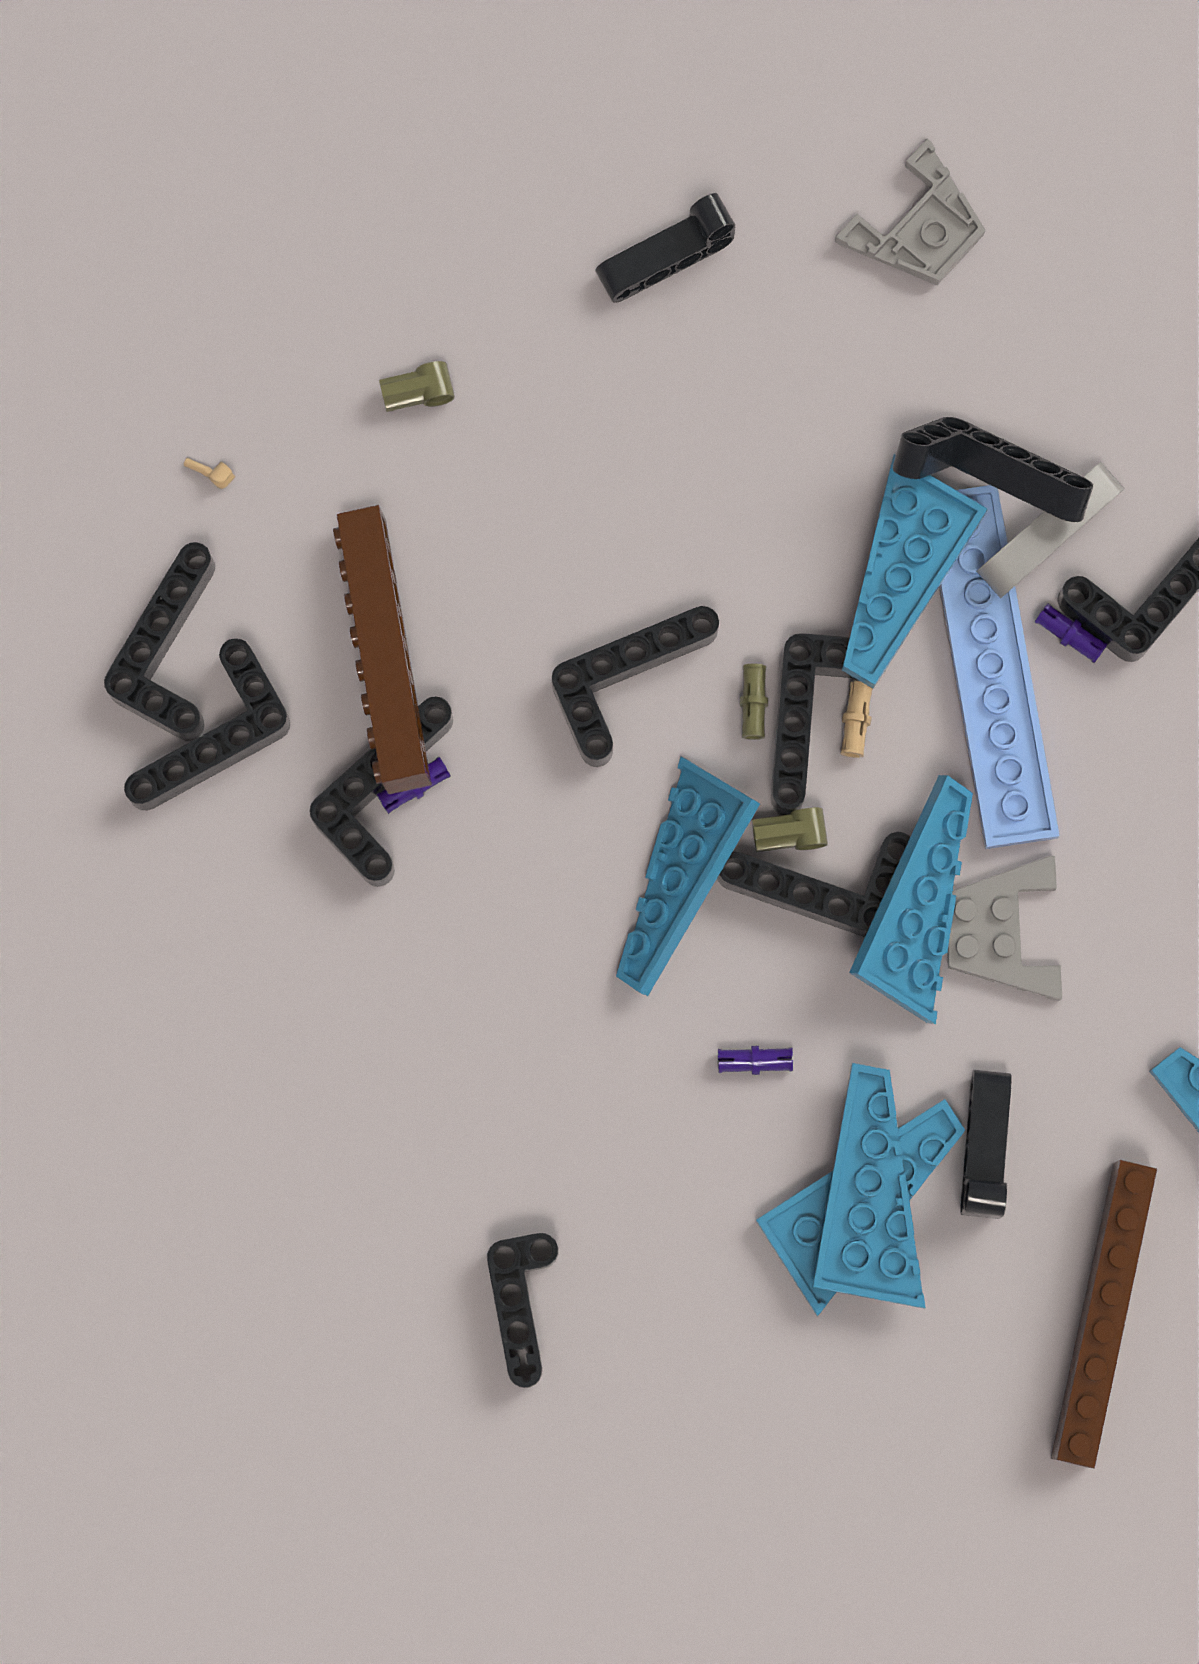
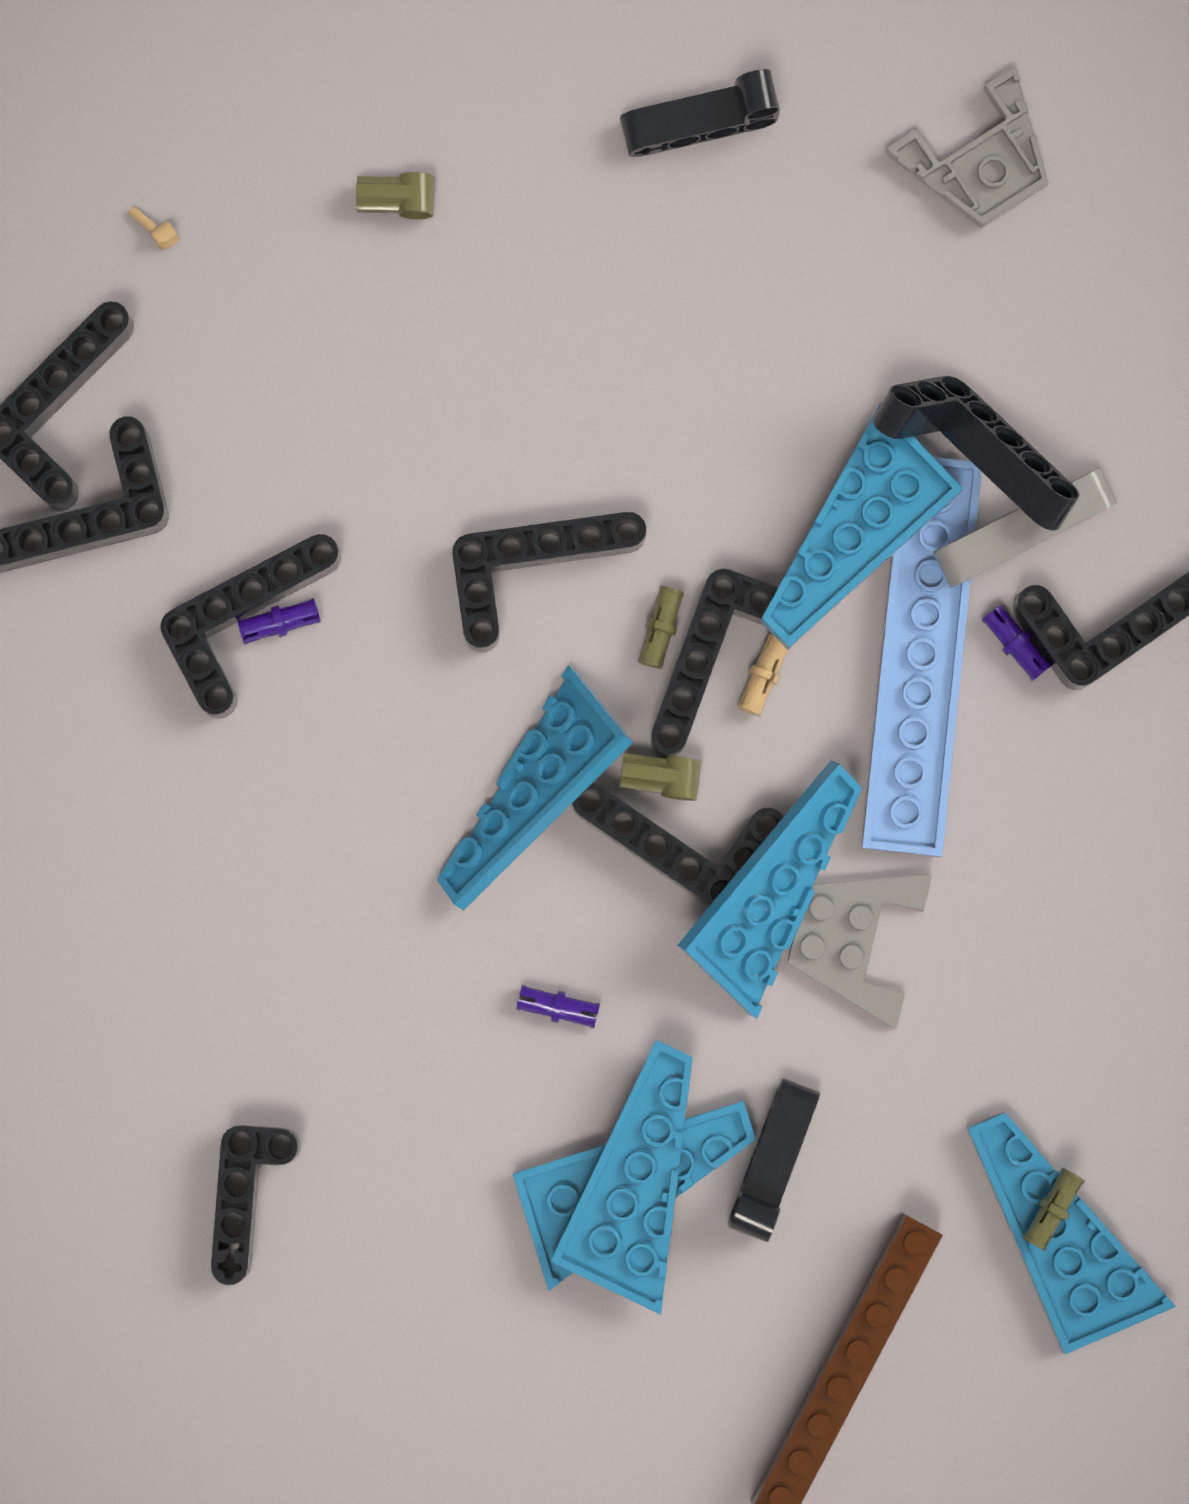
camera: 10 degrees right, 5 degrees up
(383, 650) = (282, 470): reddish brown brick -> none

